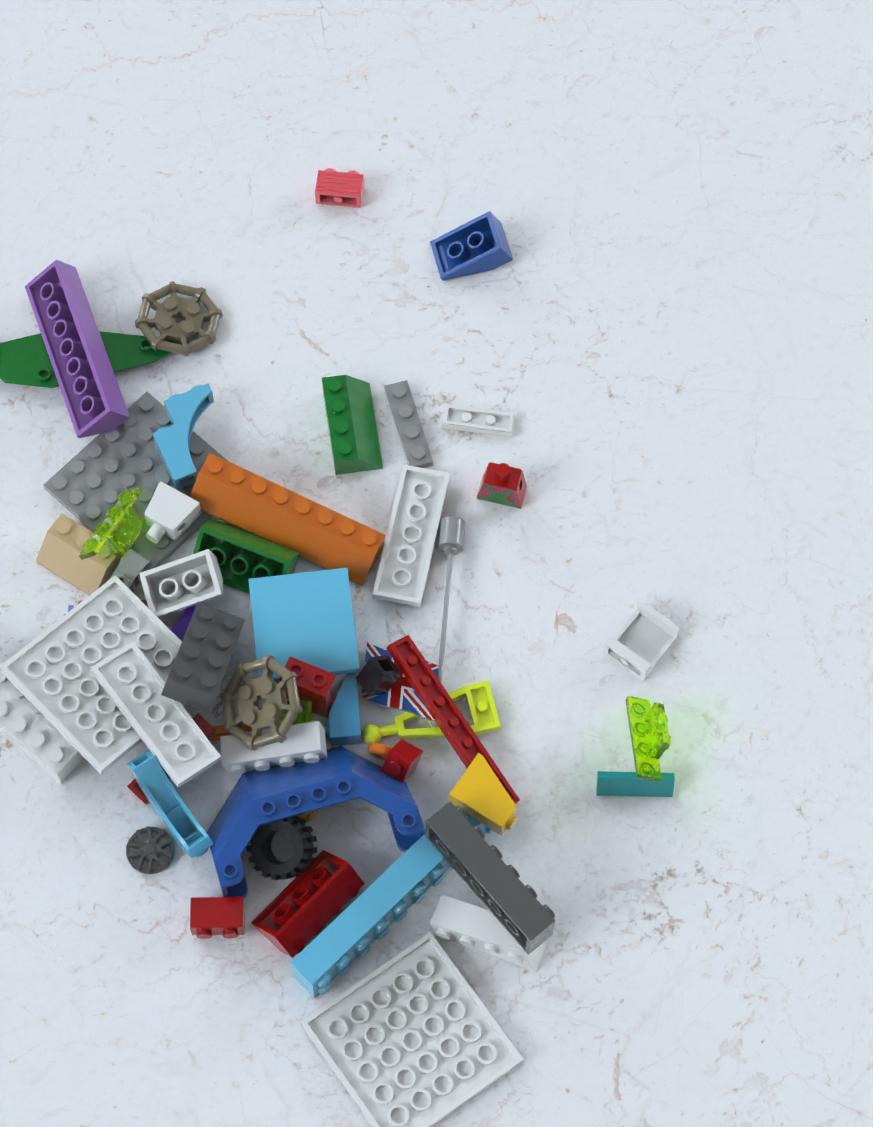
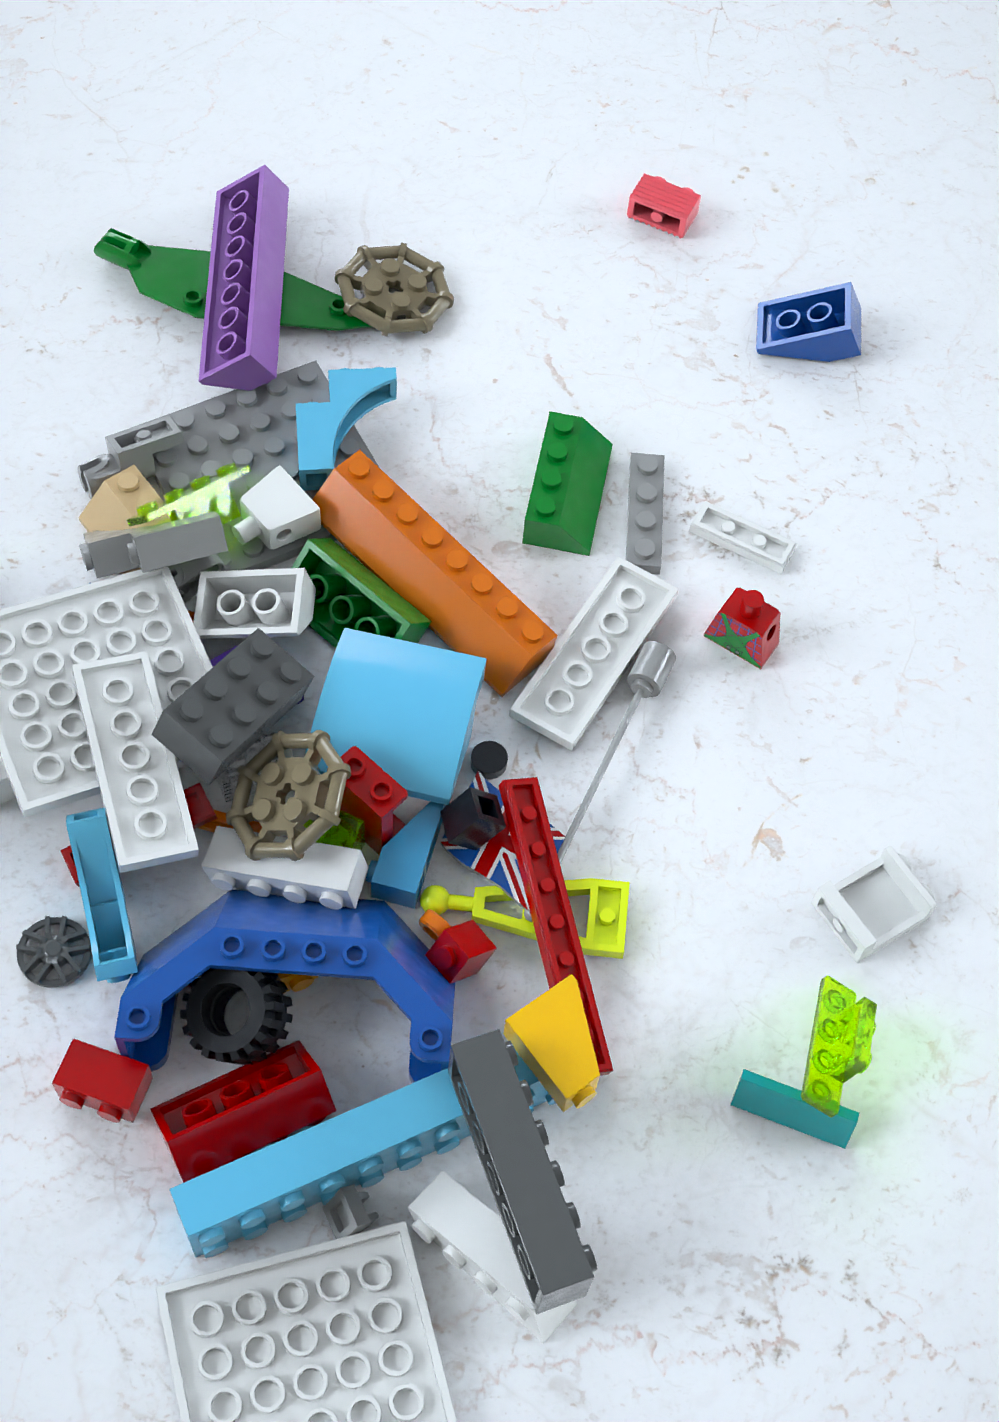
camera: 15 degrees right, 5 degrees down
(52, 504) = (130, 448): none -> light grey plate
(101, 569) = (153, 545): none -> light grey arch
(371, 631) = (489, 759): none -> black tile
(394, 939) = (347, 1213): none -> light grey tile

